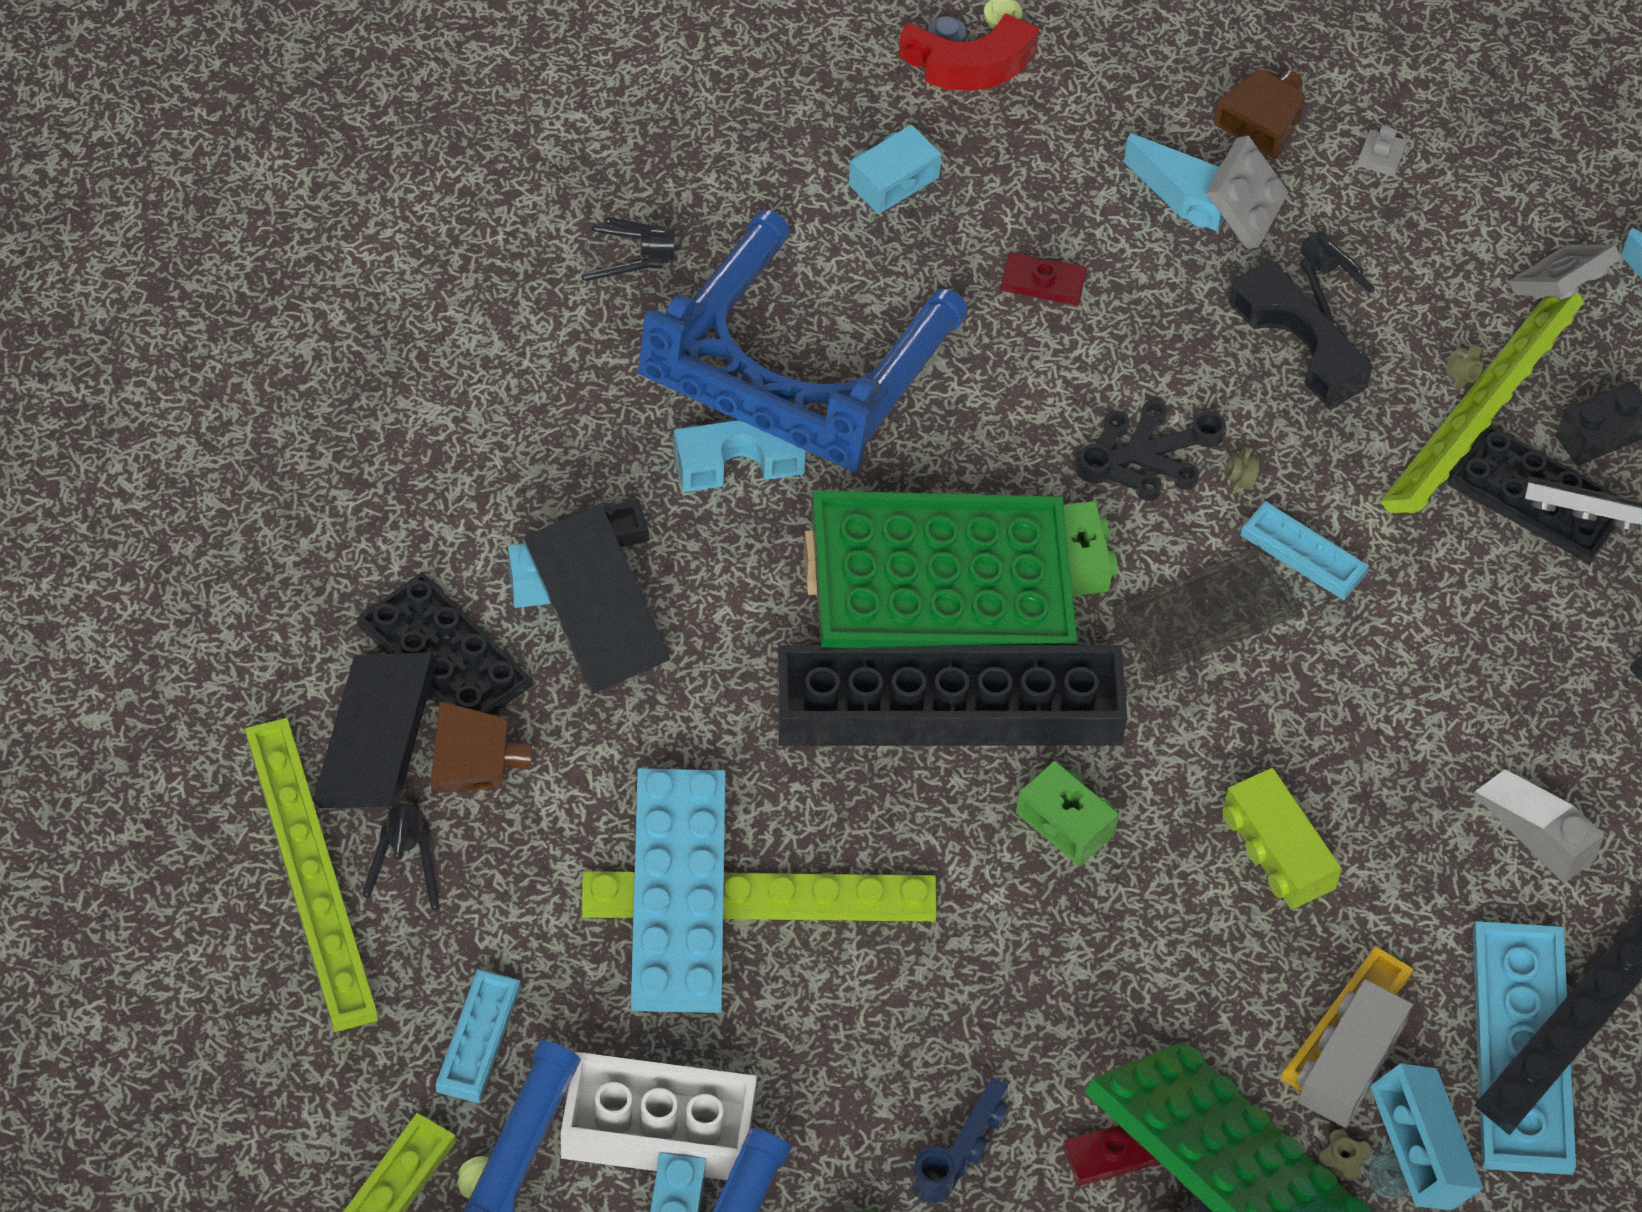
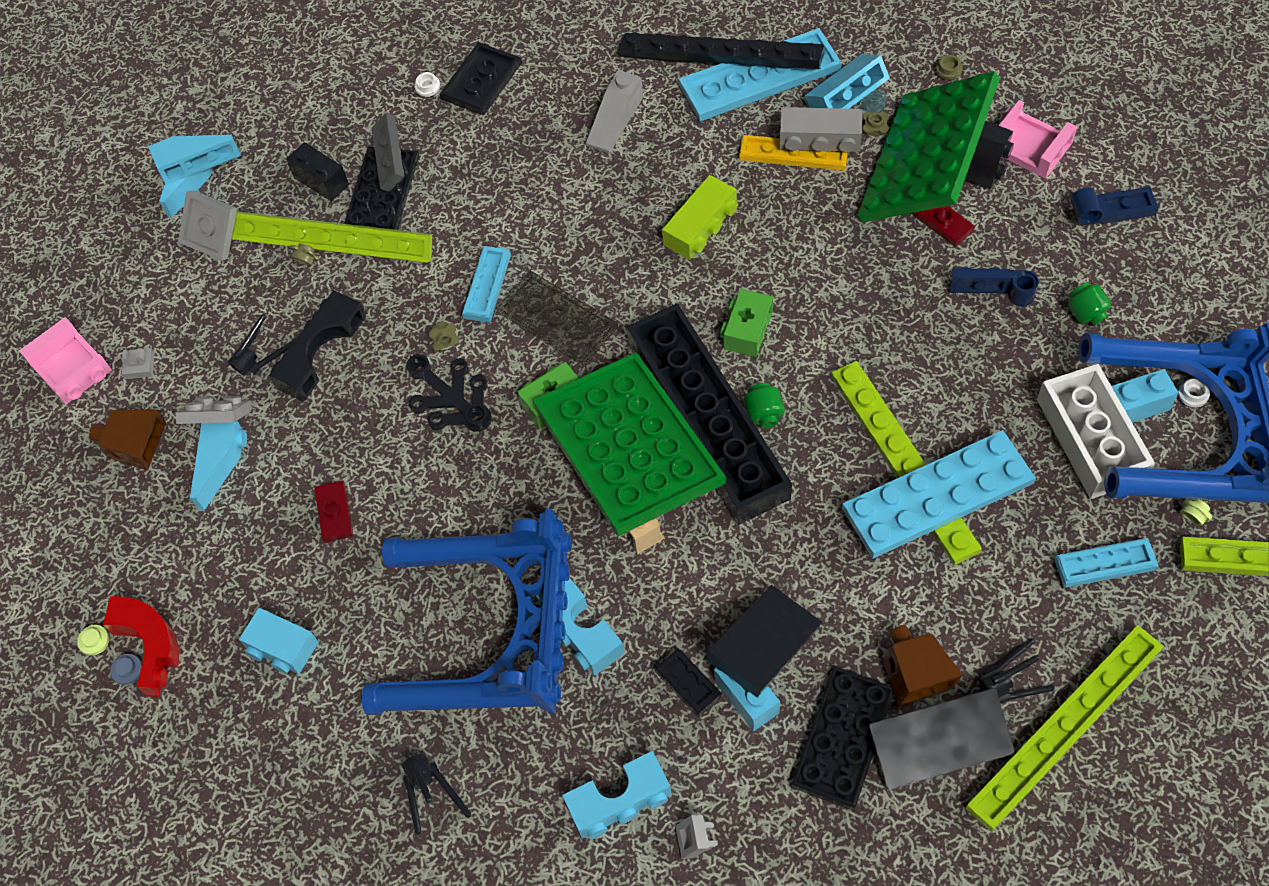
camera: 105 degrees left, 5 degrees up
(422, 453) = (693, 836): none -> light grey tile
(511, 432) = (595, 812): none -> medium azure arch
(925, 768) = (764, 405): none -> green head
(1421, 82) = (65, 361): none -> bright pink panel

